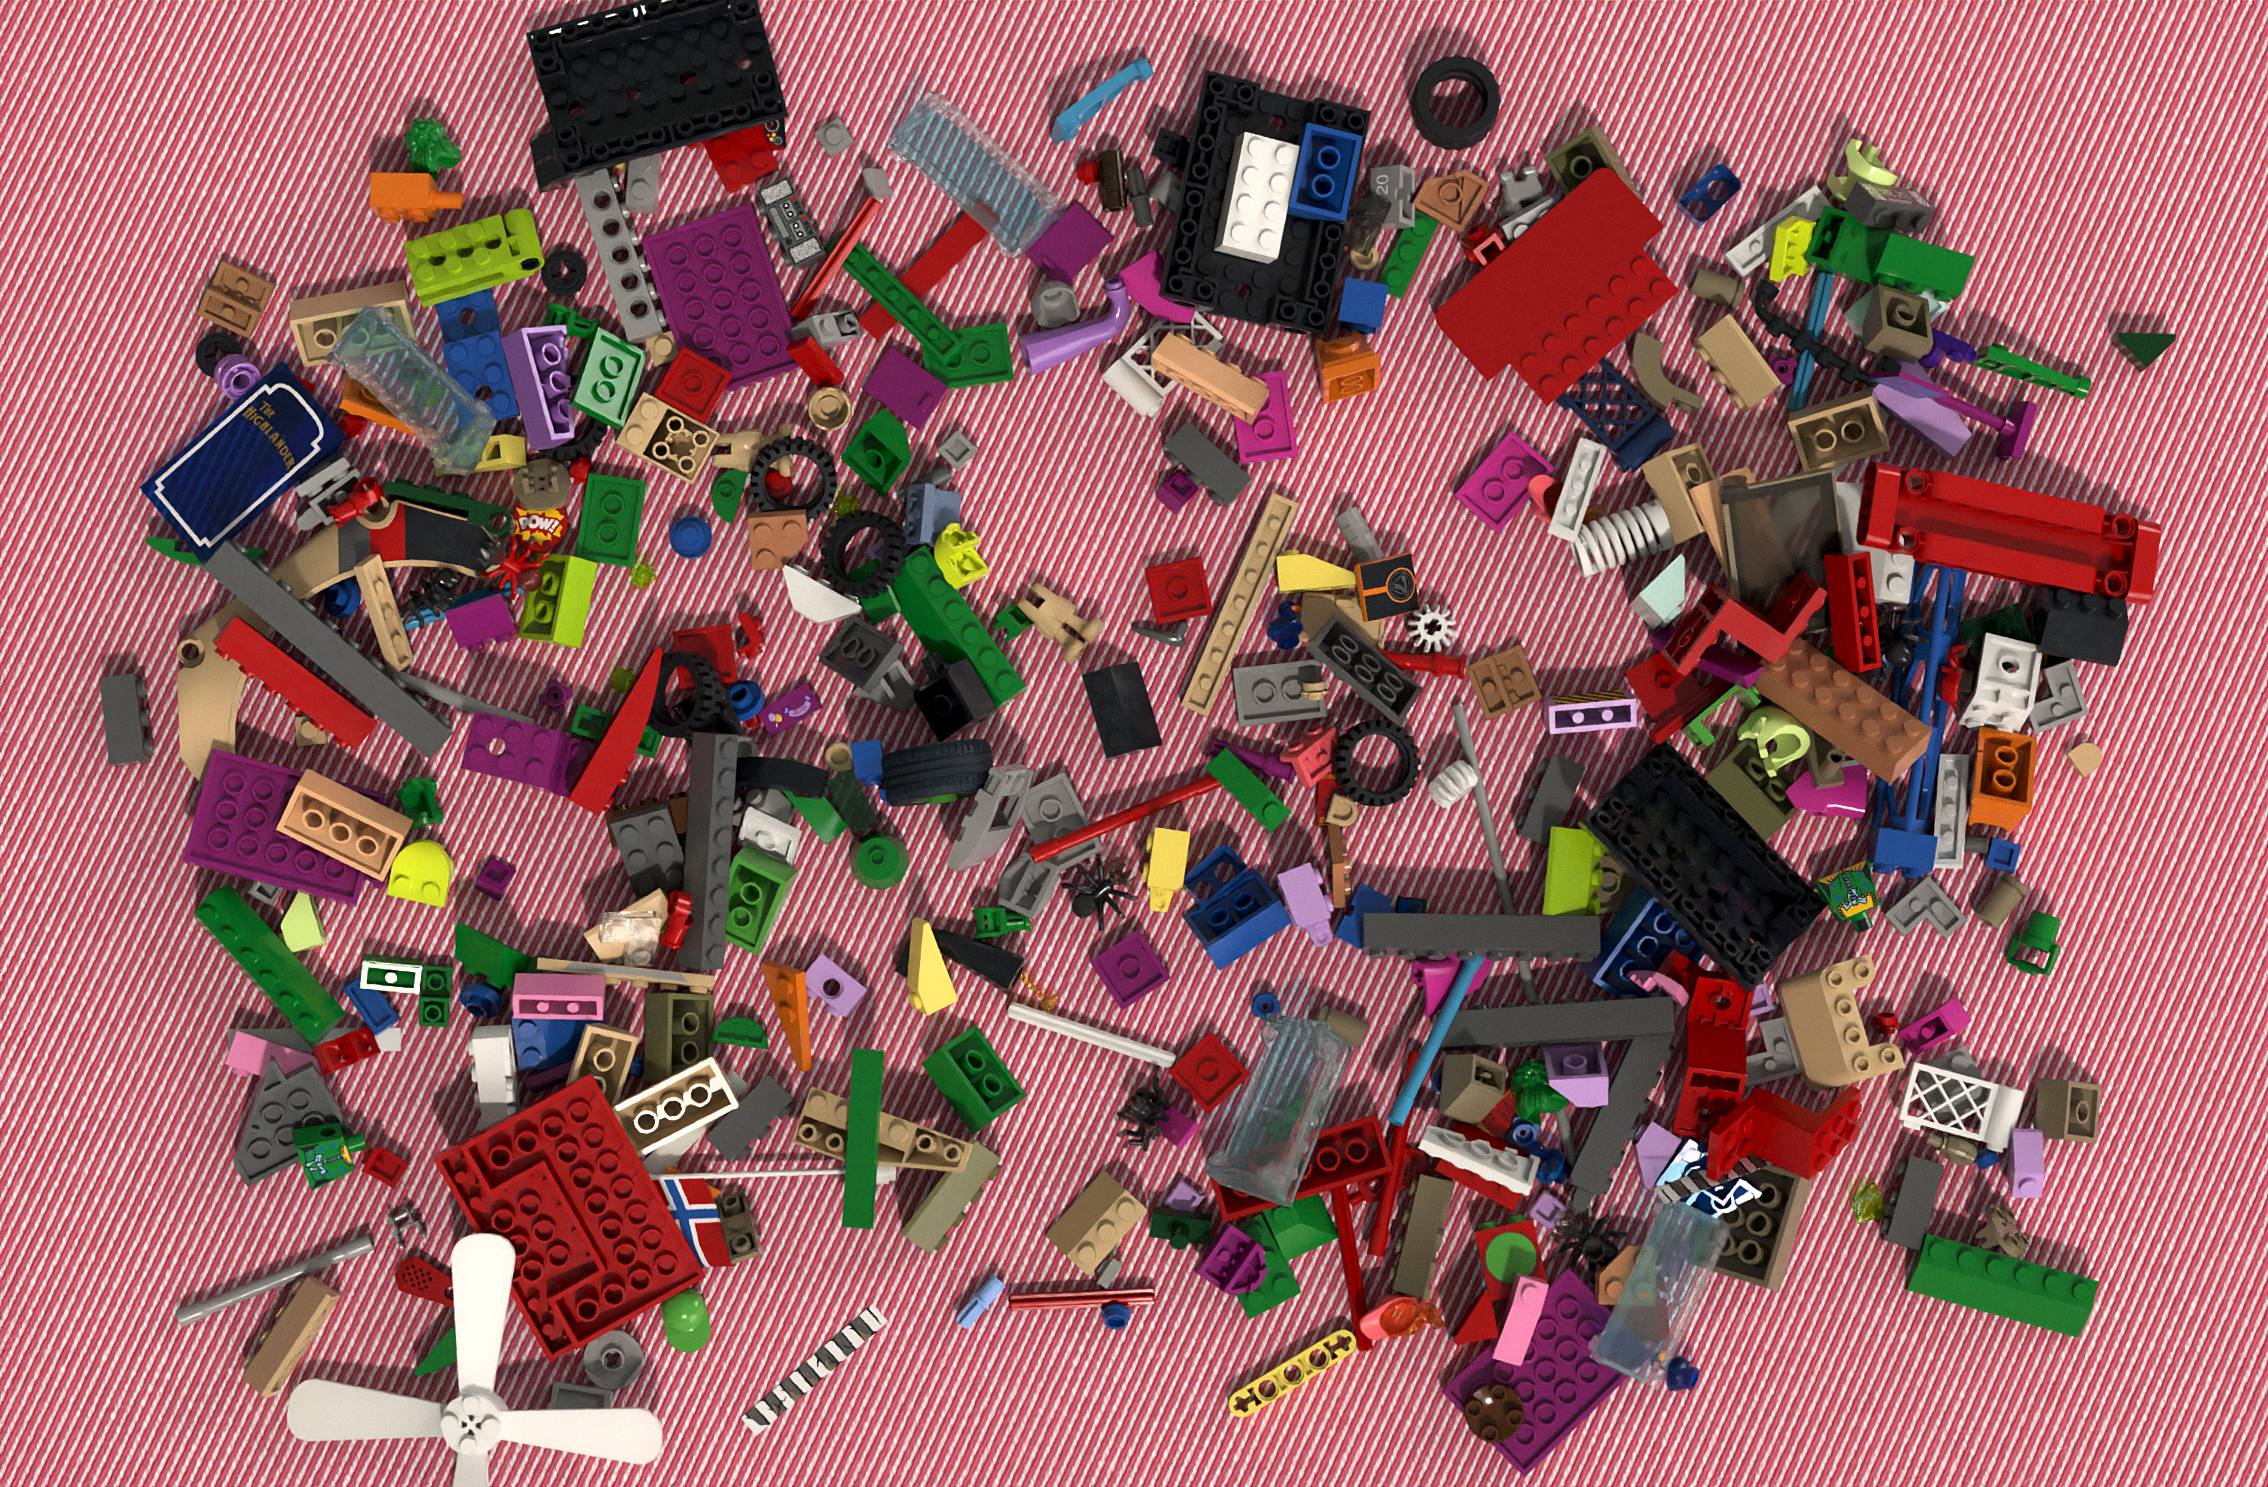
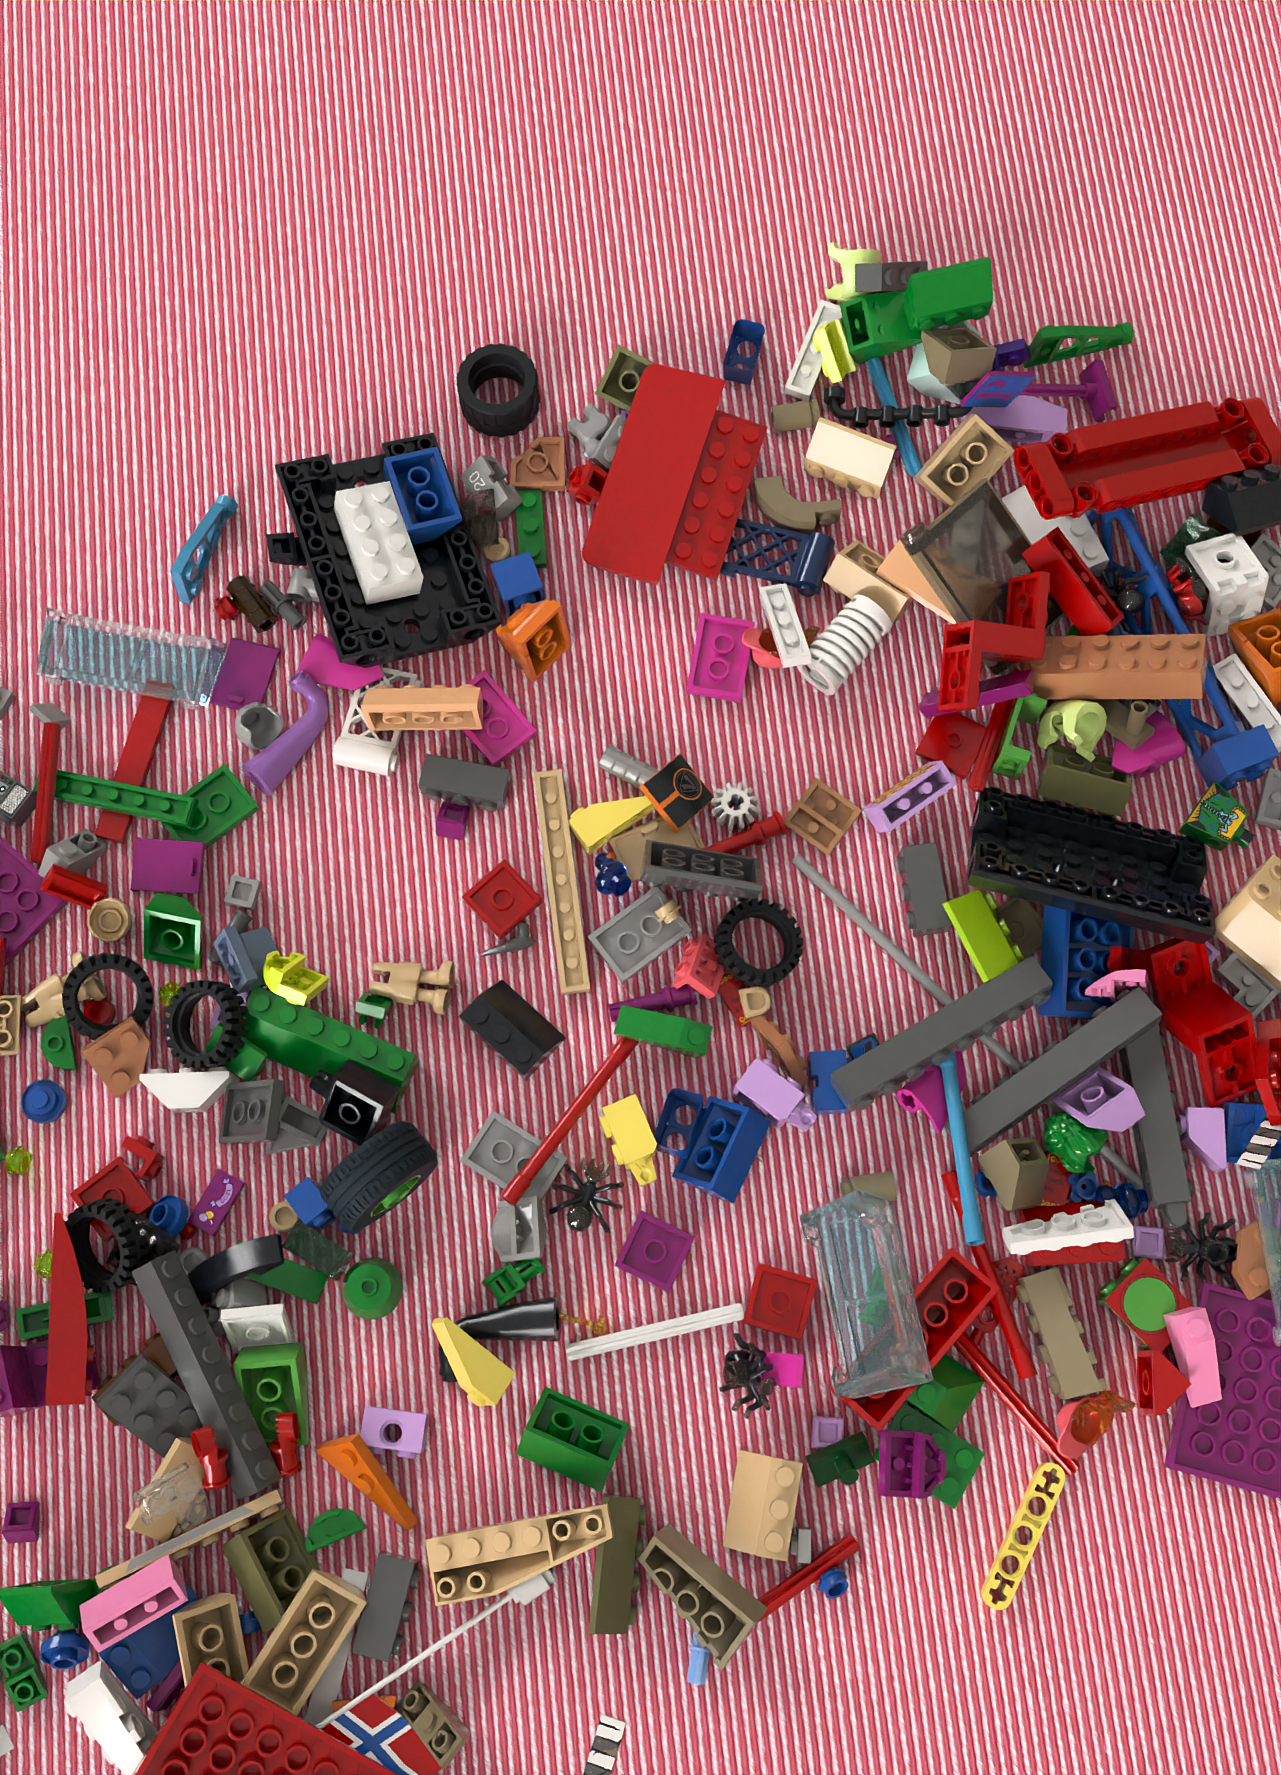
camera: 30 degrees left, 10 degrees down
(740, 944) = (285, 1445): none -> red connector
(863, 1138) = (501, 1563): green tile -> none
(979, 840) = (450, 1215): light grey slope -> none
(1007, 1259) = (703, 1592): none -> dark tan wedge
(1258, 1001) = (791, 1203): blue plate -> none
(1452, 784) = (834, 922): white gear -> none
(1494, 1412) = (1227, 1457): reddish brown dish -> none
(1661, 598) = (911, 665): light aqua slope -> none
(2142, 348) = (1149, 280): dark green slope -> none

